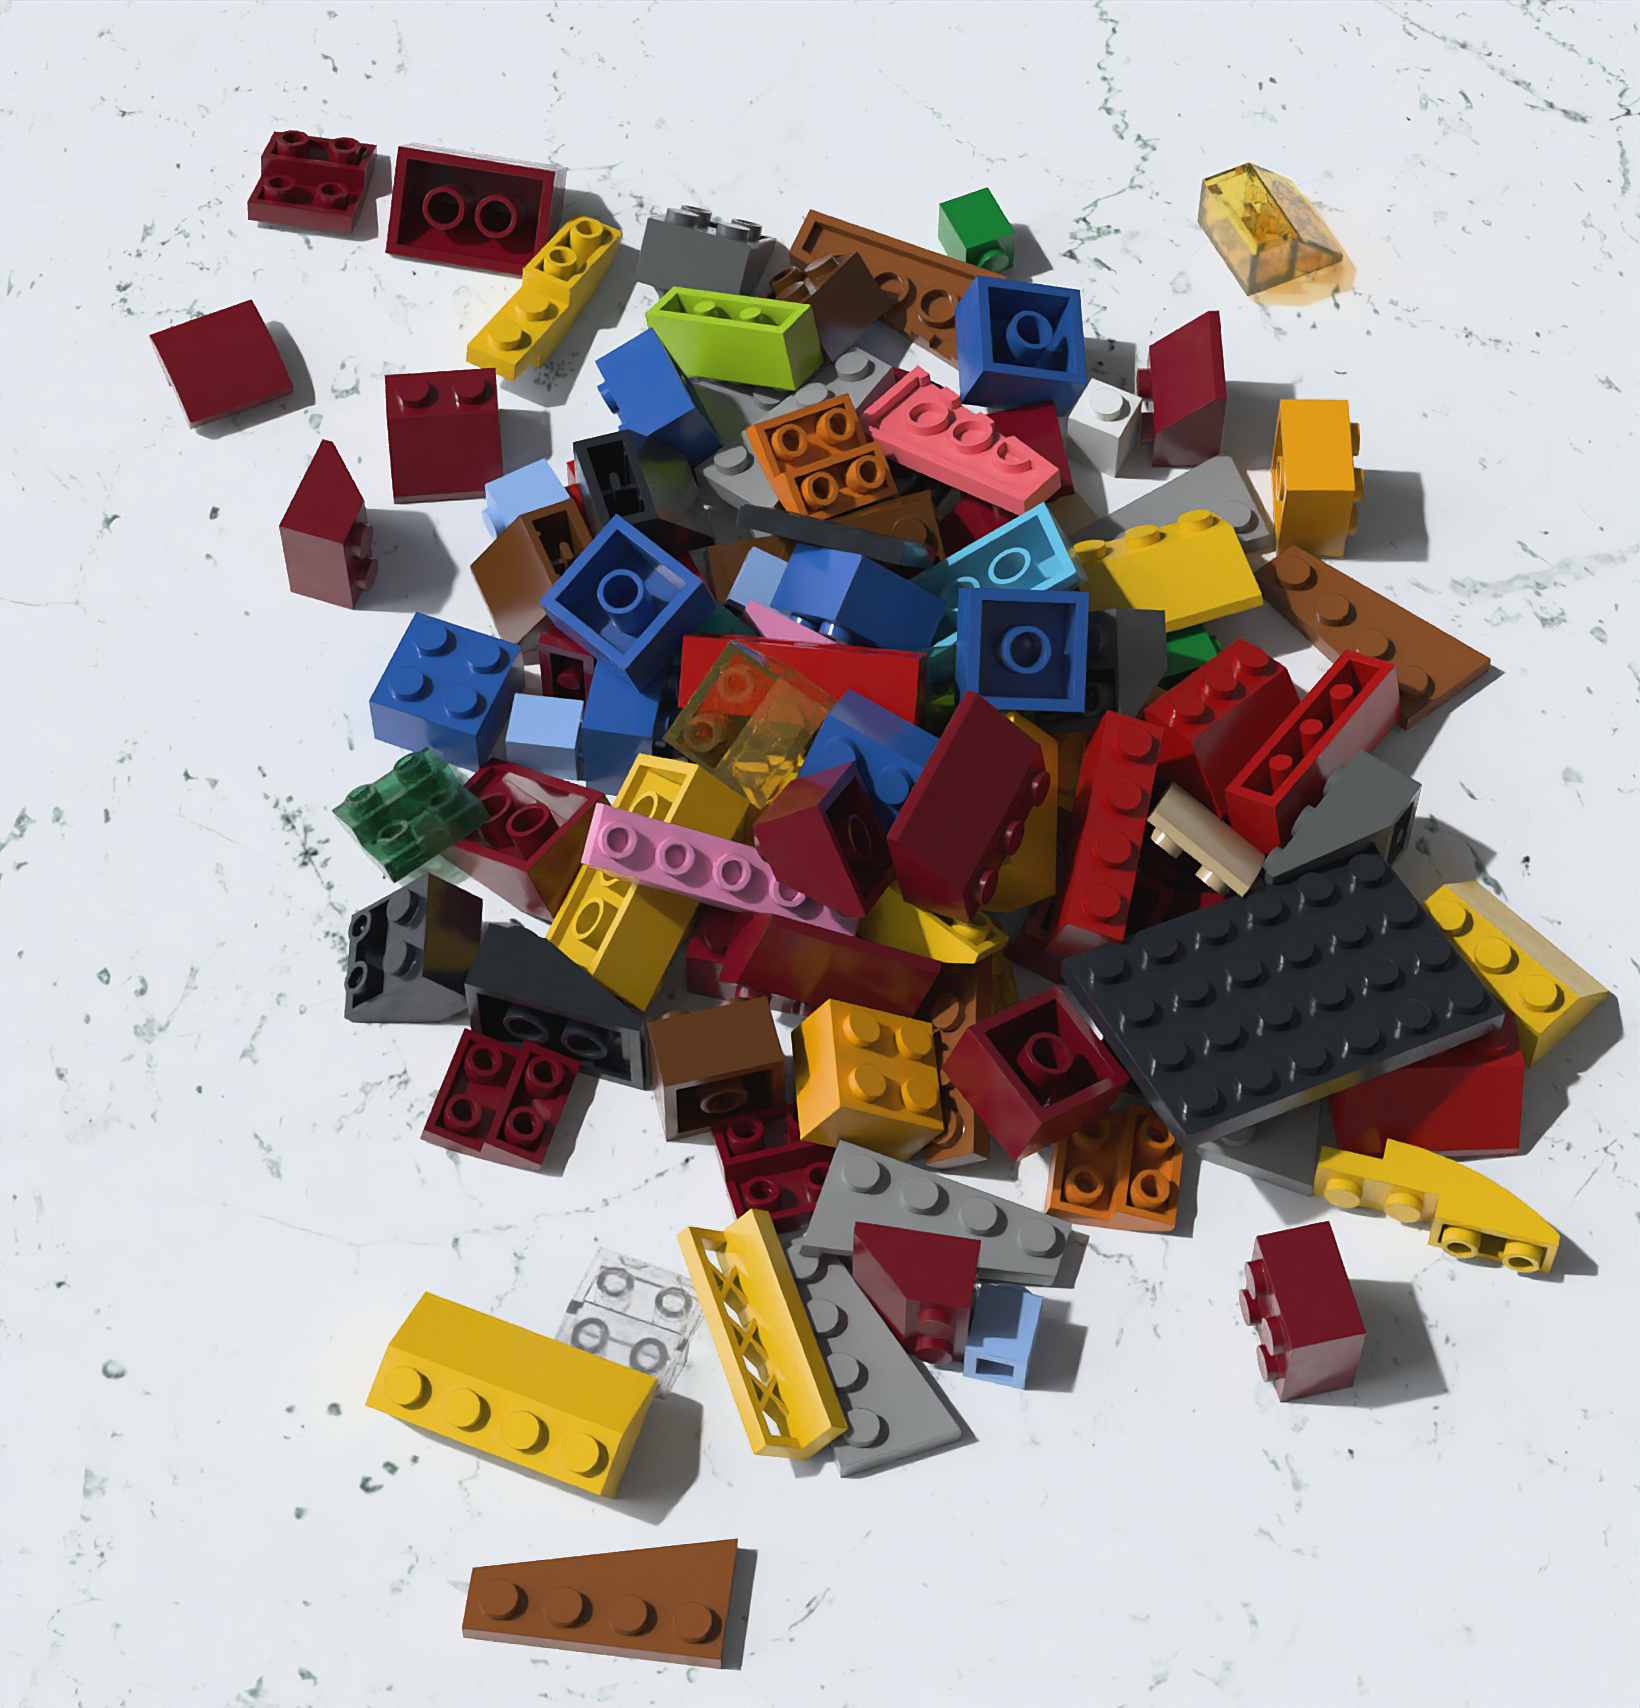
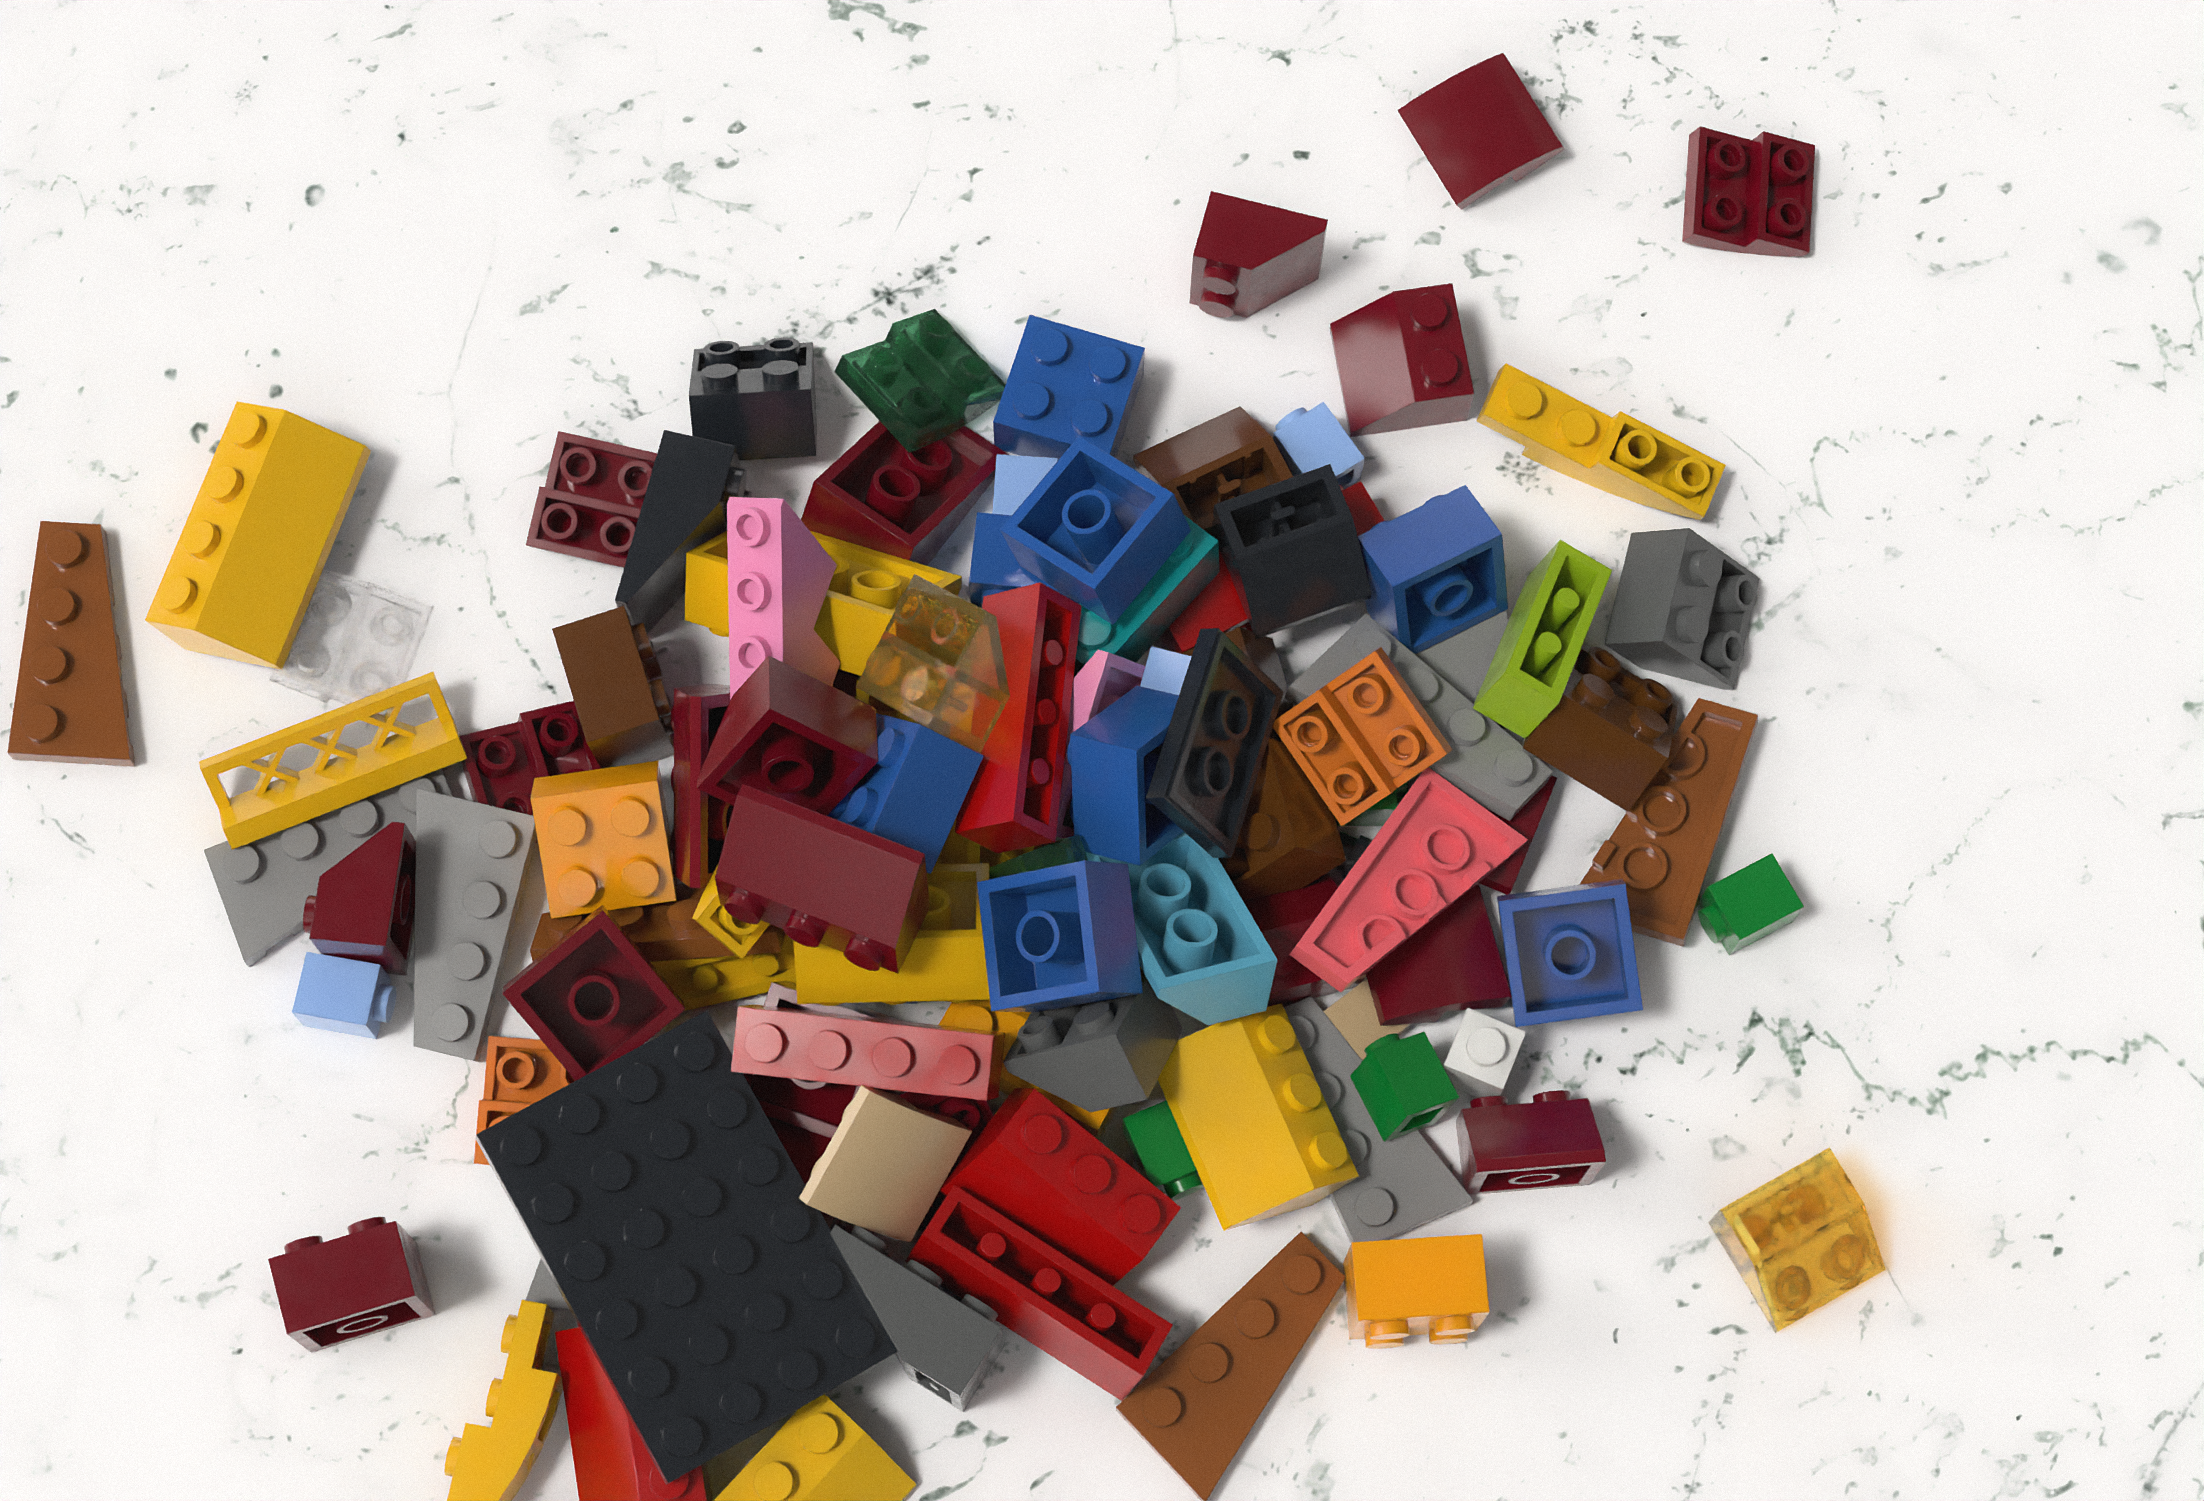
camera: 85 degrees right, 15 degrees up
(473, 207) = (1726, 358): dark red slope -> none
(1130, 477) = (1403, 1084): none -> green brick

